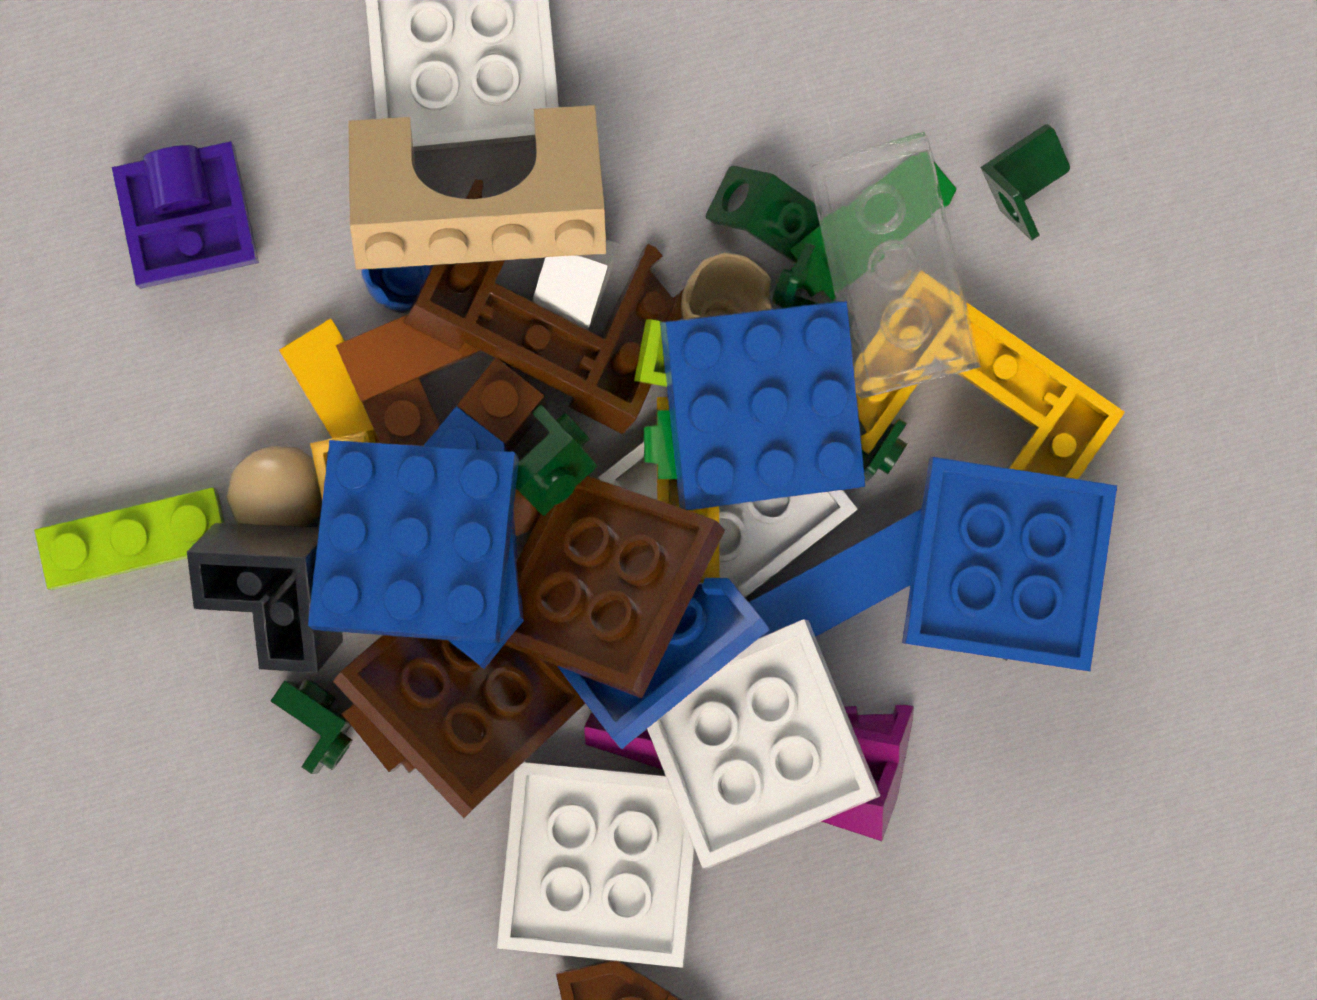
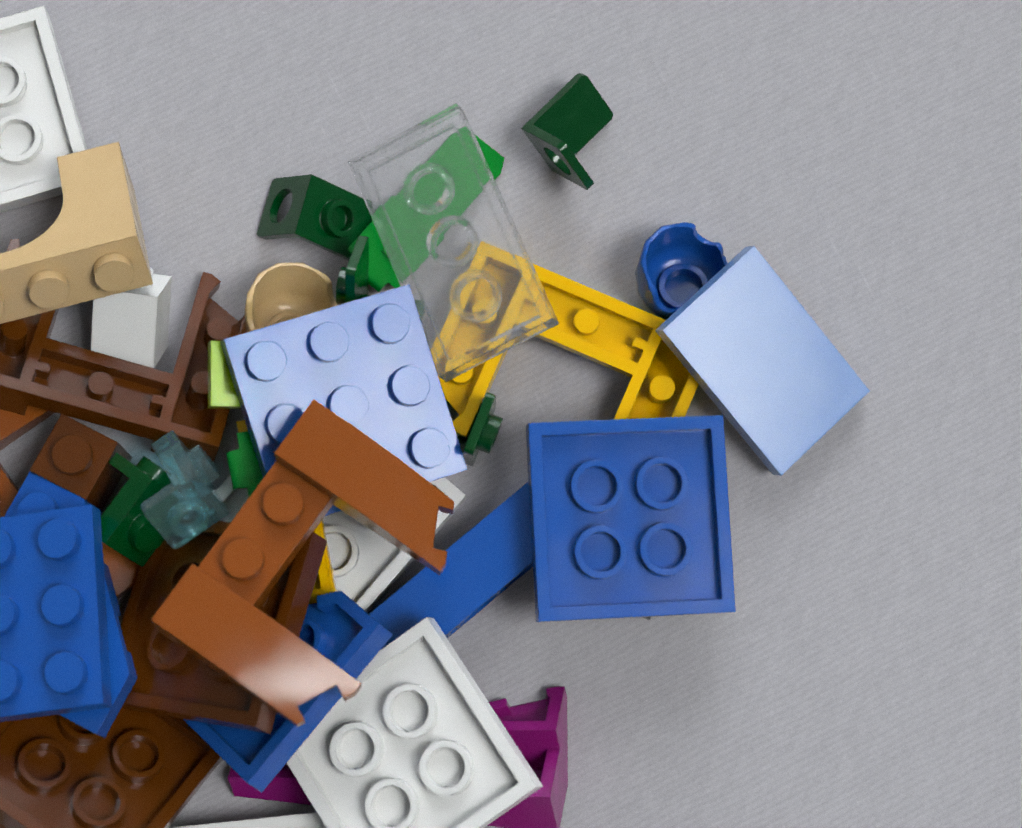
camera: 15 degrees left, 5 degrees down
(603, 466) = (190, 500): none -> clear light blue bracket
(618, 569) = (217, 603): none -> dark orange wedge
(1105, 340) = (675, 266): none -> blue hair
(1165, 438) = (763, 360): none -> tile

